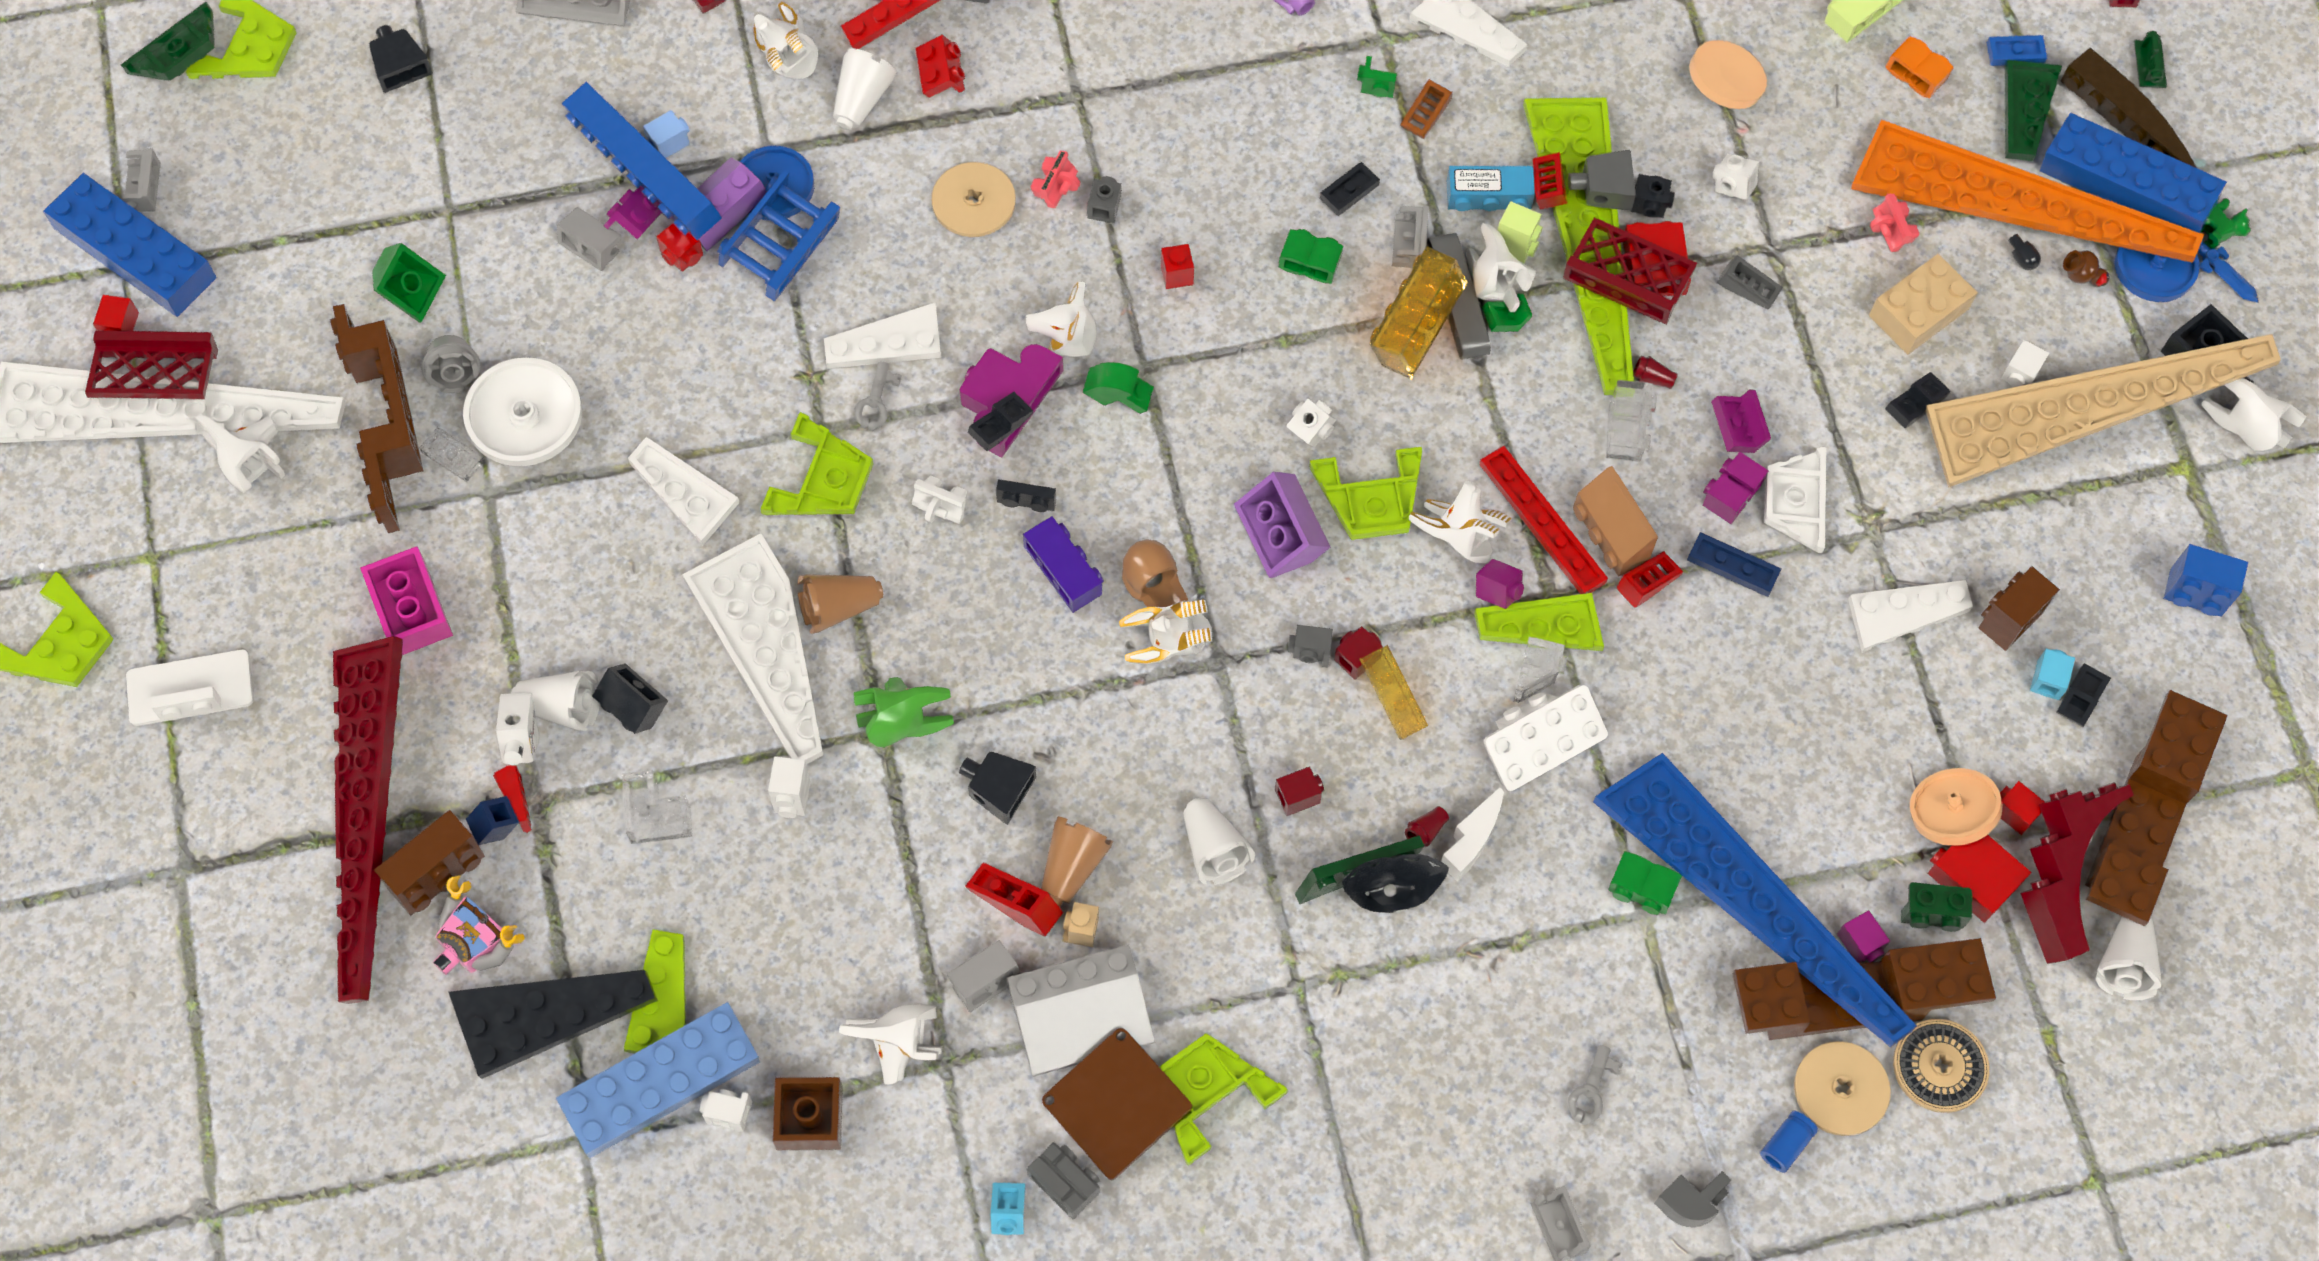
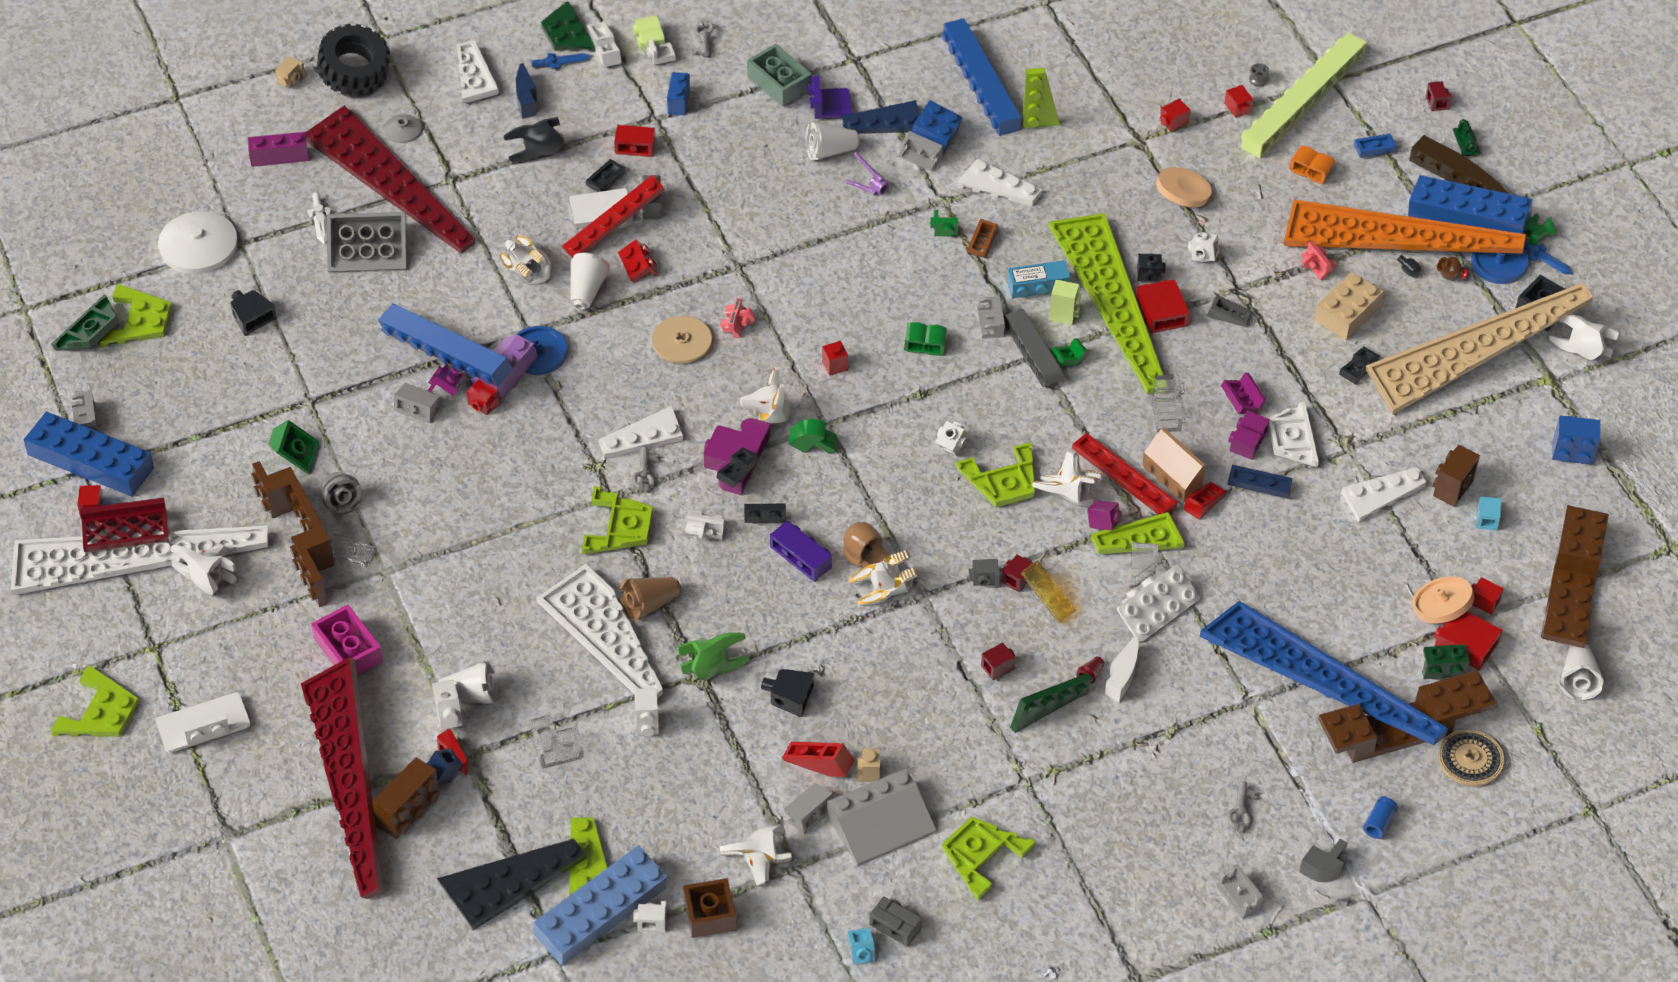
camera: 10 degrees left, 15 degrees down
(470, 934) = (445, 840): torso -> none
(522, 411) = (399, 514): white dish -> none
(629, 698) = (520, 677): black brick -> none
(667, 133) = (458, 325): light blue brick -> none
(687, 492) = (527, 548): white wing -> none
(791, 259) = (564, 393): blue fence -> none
(1072, 859) = (854, 722): medium nougat cone -> none
(1104, 200) = (773, 321): dark grey brick -> none
(1117, 1104) = (920, 869): reddish brown piece -> none
(1215, 843) = (950, 701): white cone -> none
(1281, 524) = (945, 503): medium lavender slope -> none
(1349, 188) = (941, 294): black plate -> none
(1402, 875) = (1078, 698): black piece -> none
(1418, 312) = (1009, 357): clear yellow brick -> none
(1498, 270) = (1057, 326): white piece -> none
(1551, 198) = (1083, 277): red slope -> none
(1607, 180) = (1117, 261): dark grey torso -> none
(1615, 286) = (1143, 324): dark red fence -> none
(1644, 883) = (1246, 680): green brick -> none
(1651, 371) = (1185, 376): dark red cone -> none
(1834, 1111) = (1405, 767): tan piece -> none
(1864, 938) = (1402, 686): magenta brick -> none
(2024, 365) = (1426, 330): white brick -> none
(2027, 104) = (1389, 175): dark green wing -> none
(2055, 898) = (1518, 617): dark red arch -> none
(2083, 695) = (1512, 523): black slope -> none

